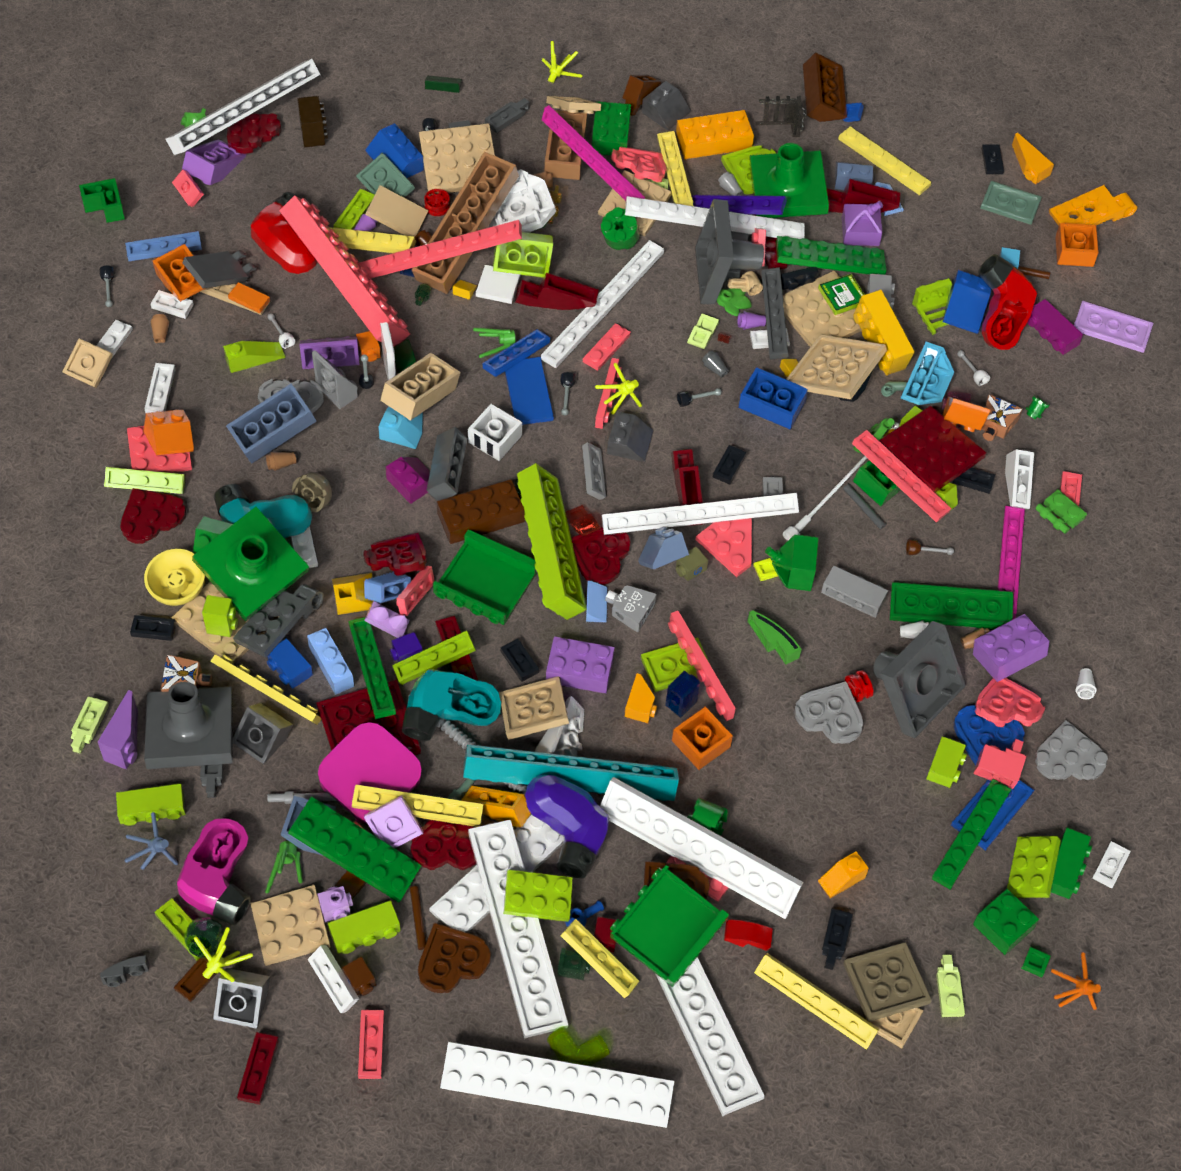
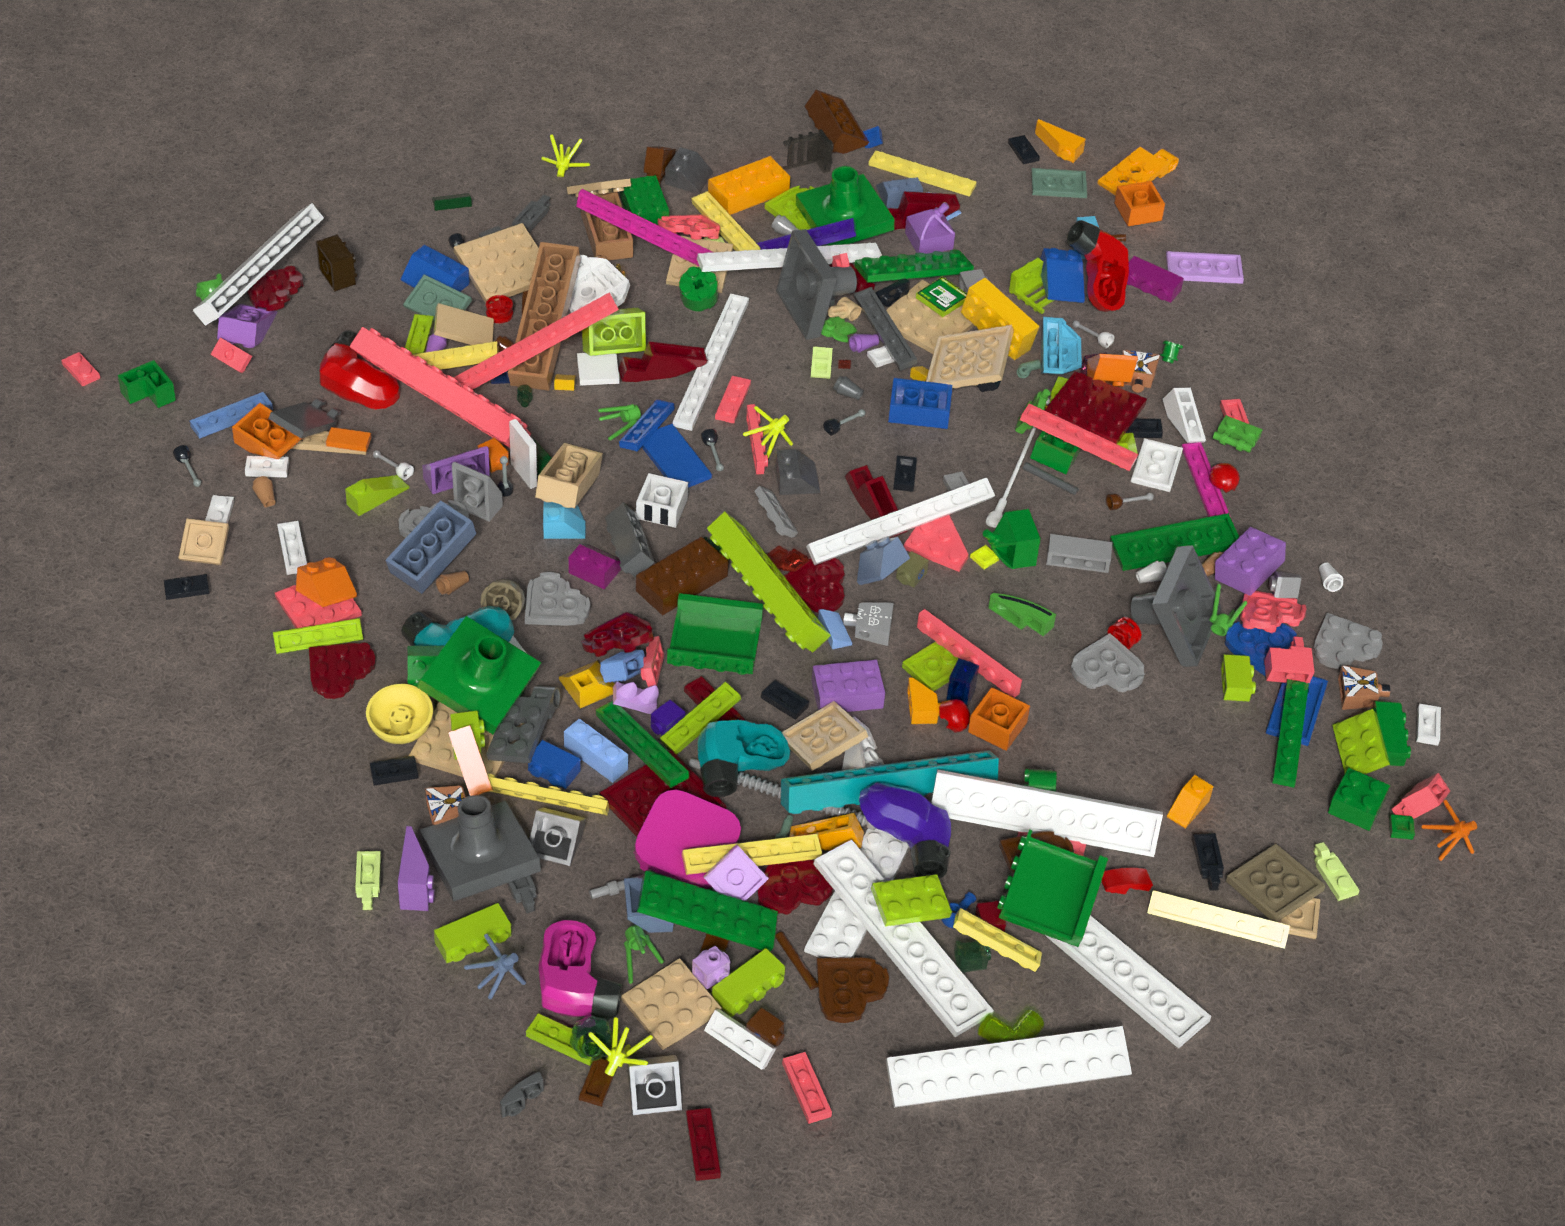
camera: 20 degrees left, 10 degrees down
(57, 401) = (186, 587): none -> black plate
(59, 168) = (80, 369): none -> coral plate
(210, 643) = (470, 760): none -> tile
(359, 505) = (554, 602): none -> light grey plate
(663, 721) = (956, 714): none -> red hair
(957, 702) = (1223, 622): none -> bright green plant
(971, 520) = (1156, 465): none -> white tile
(1029, 552) = (1224, 477): none -> red hair
(1034, 681) = (1284, 585): none -> light grey slope
(1061, 808) = (1360, 688): none -> torso
(1068, 940) = (1423, 797): none -> coral hinge

